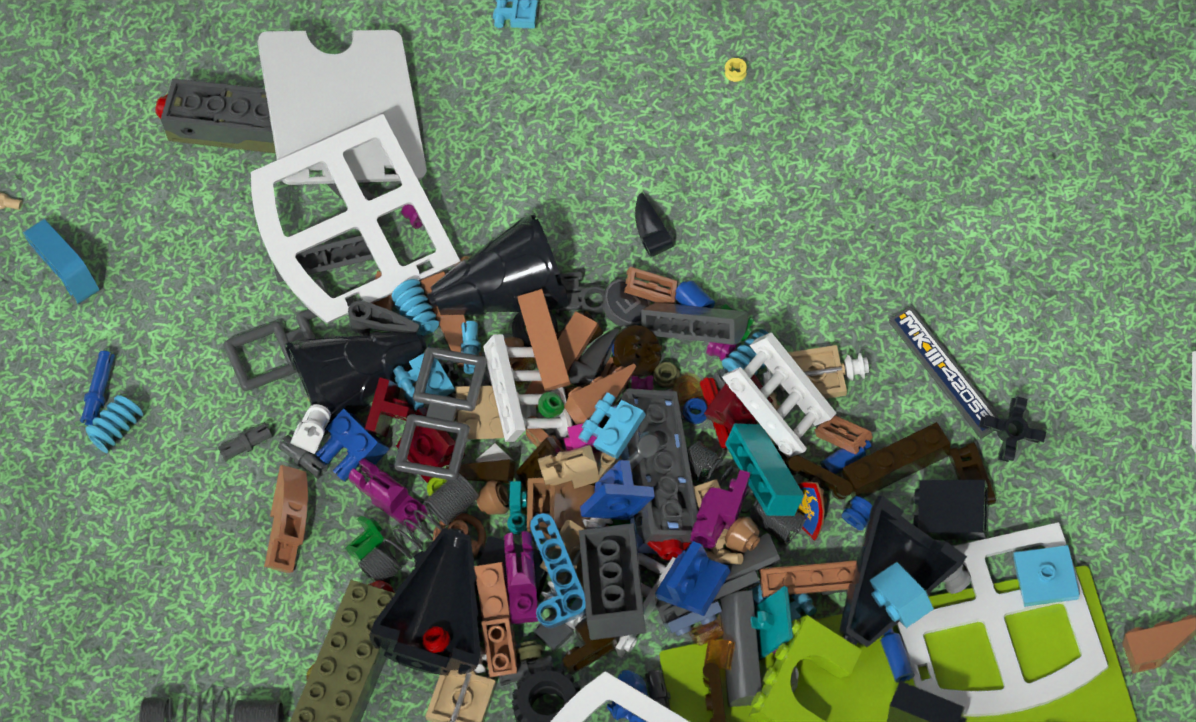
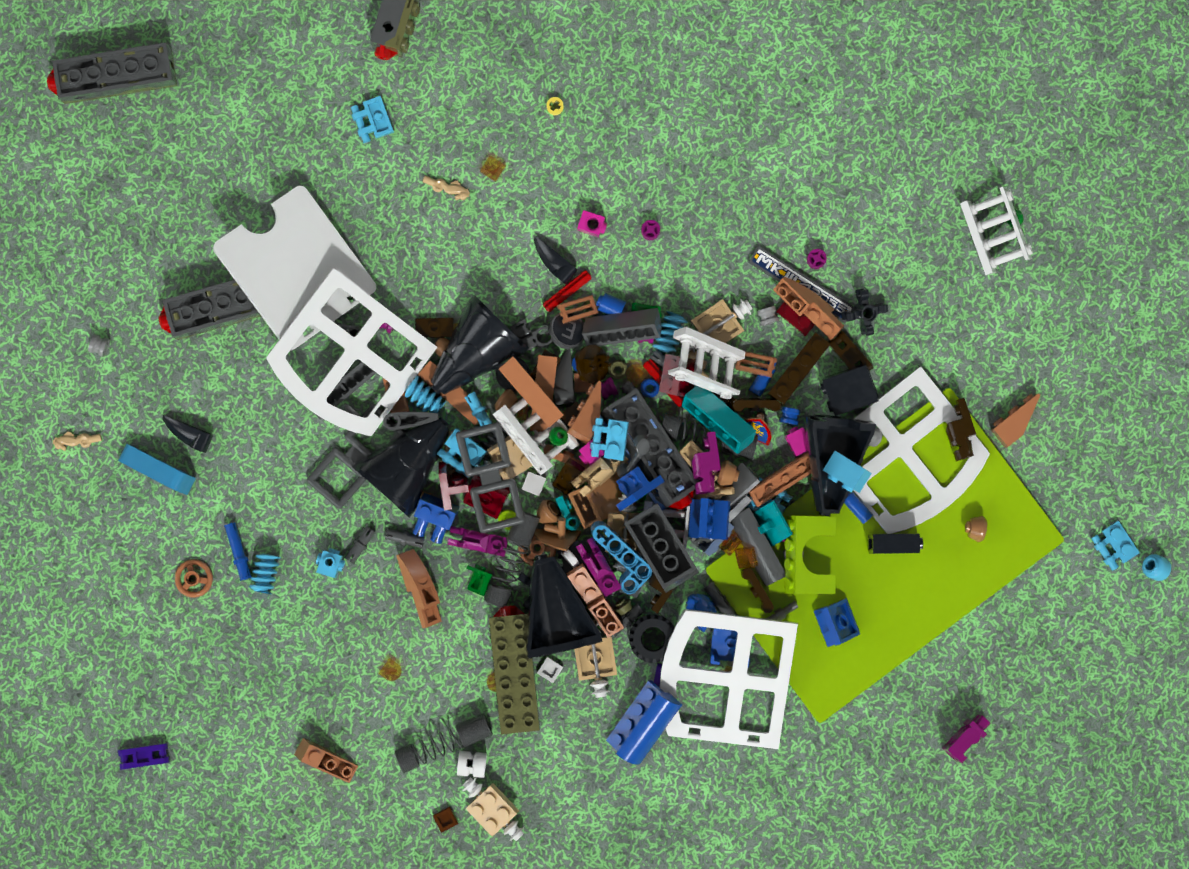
camera: 30 degrees left, 25 degrees up
(22, 387) = (184, 589): none -> nougat piece
(56, 675) = (325, 760): none -> nougat slope
(77, 109) = (99, 345): none -> light grey wheel
(120, 240) = (188, 434): none -> black piece
(196, 443) = (323, 566): none -> medium azure brick
(198, 604) = (391, 670): none -> clear orange tile
(311, 428) = (405, 523): white piece -> none
(396, 690) = (550, 670): none -> white tile
(436, 640) = (560, 629): red plate -> none
(466, 240) = (435, 327): none -> dark brown plate
(490, 552) = (570, 558): none -> white tile
(492, 470) = (535, 496): dark brown piece -> none
(493, 529) = (557, 536): none -> medium nougat shield
(572, 109) = (454, 188): none -> tan animal
(628, 105) = (492, 168): none -> clear orange tile
(650, 264) = (567, 291): none -> red axle
(715, 194) = (588, 216): none -> dark pink brick
(788, 233) = (650, 226): none -> magenta wheel
(851, 542) = (797, 440): none -> dark pink brick
(885, 387) = (768, 316): none -> light grey wheel
(921, 403) = (801, 323): none -> dark red plate
(944, 391) = (809, 303): none -> nougat slope
(980, 342) = (817, 255): none -> magenta wheel
(1046, 576) = (928, 409): medium azure plate -> none
(1078, 618) = (960, 431): none -> dark brown plate

